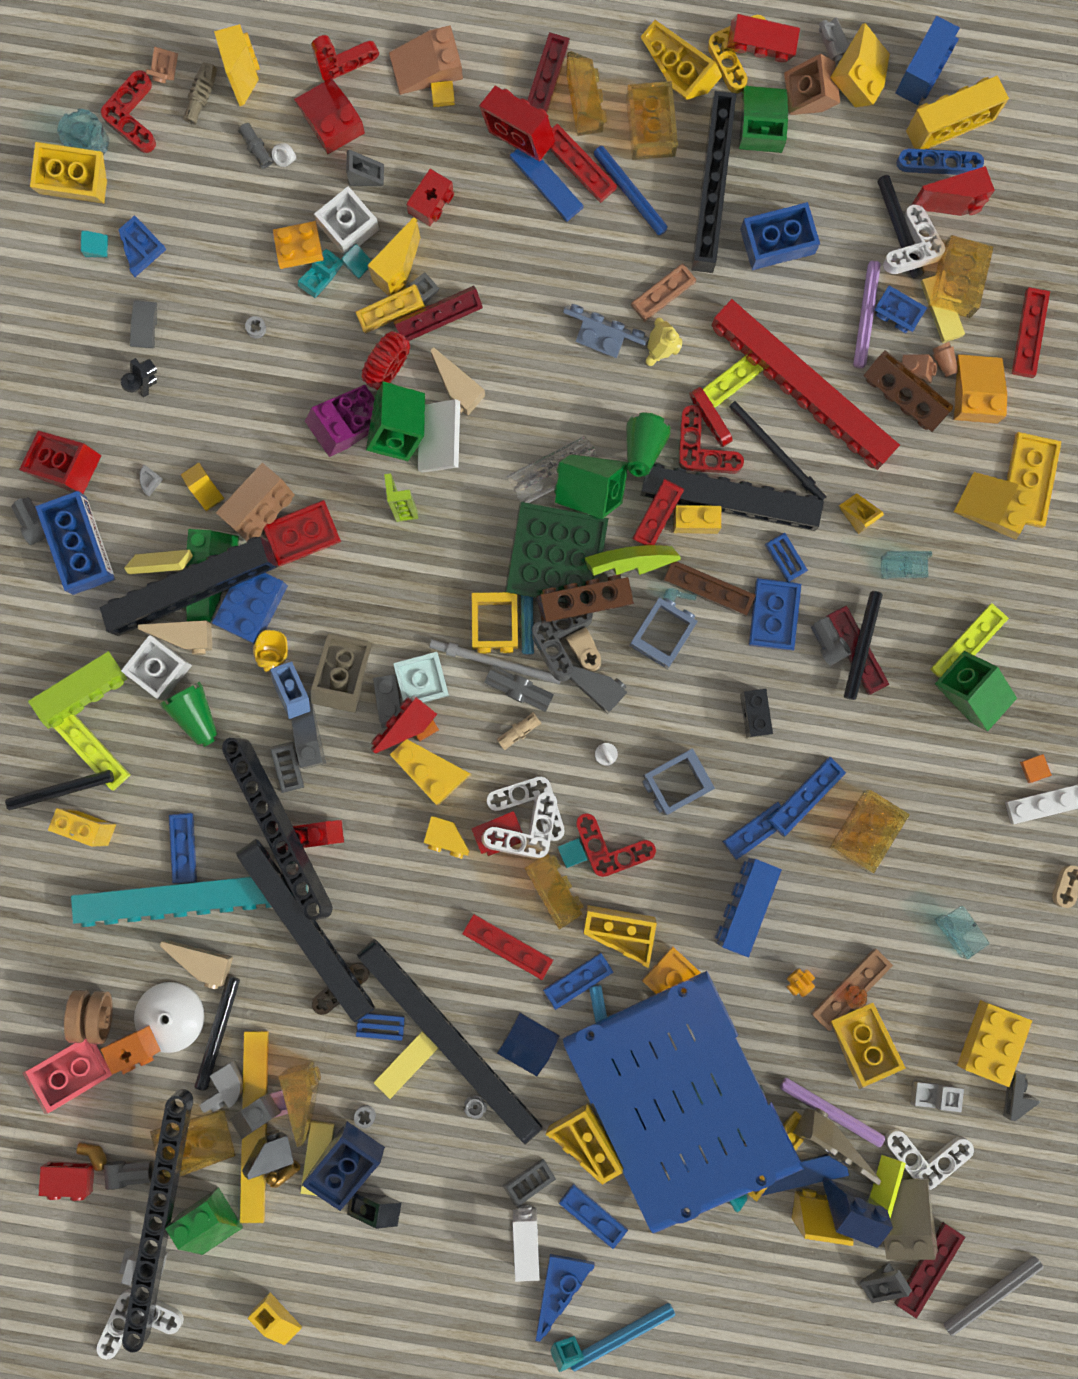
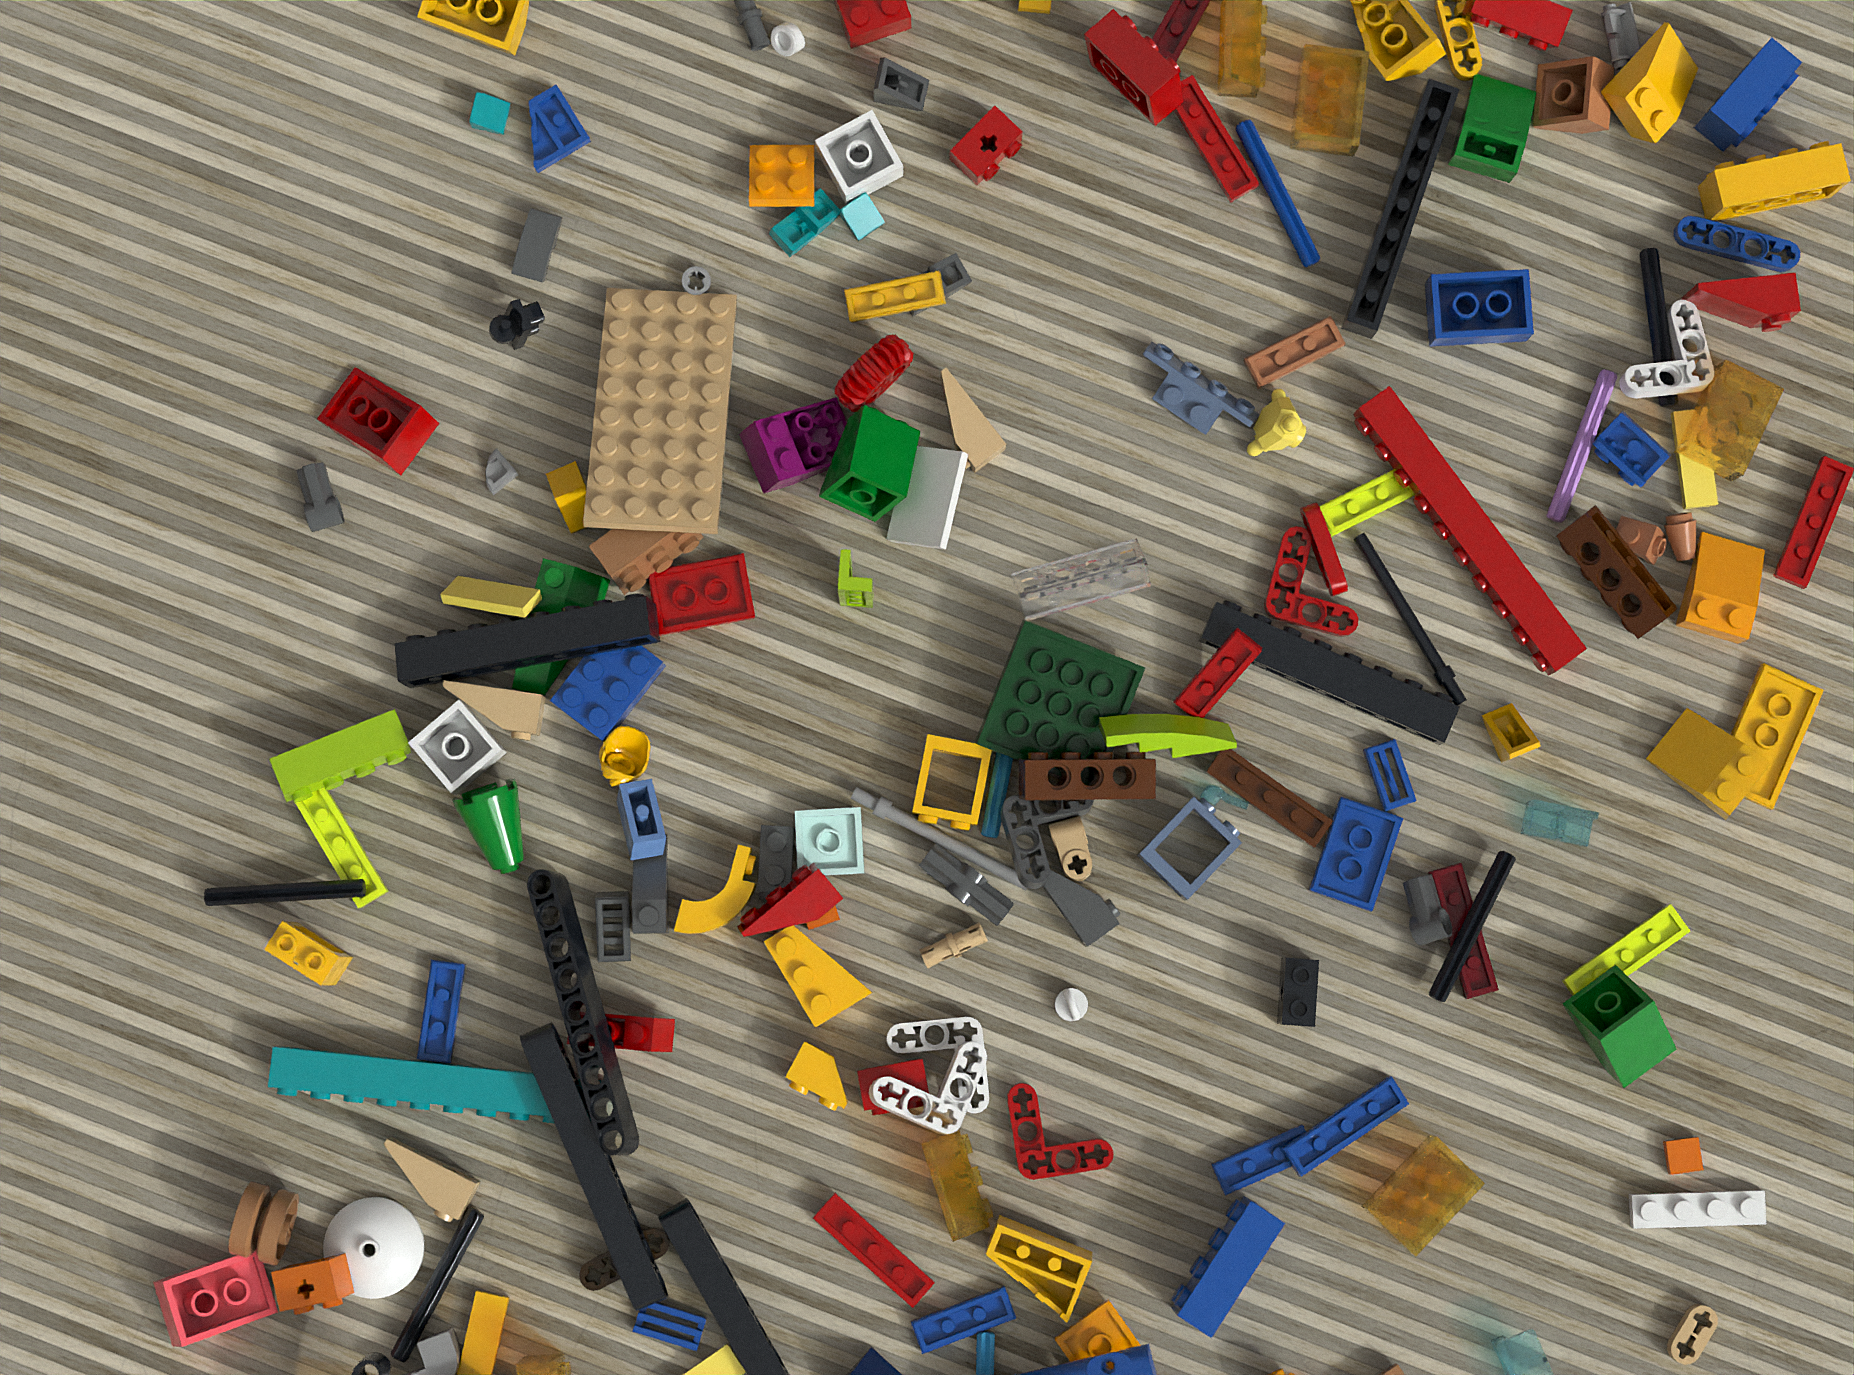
camera: 10 degrees right, 0 degrees up
(75, 543) = (378, 543): blue brick -> none
(247, 415) = (661, 411): none -> tan plate
(340, 673) = (717, 808): dark tan slope -> none
(361, 735) = (724, 907): none -> yellow arch
(393, 264) = (913, 236): yellow slope -> none
(439, 314) = (963, 318): dark red plate -> none
(548, 184) = (1160, 160): blue tile -> none
(572, 853) = (993, 1136): teal slope -> none
(590, 484) = (1130, 614): green slope -> none
(645, 440) = (1220, 569): green cone -> none
(697, 519) = (1272, 694): yellow brick -> none
(698, 771) = (1197, 1056): sand blue window -> none

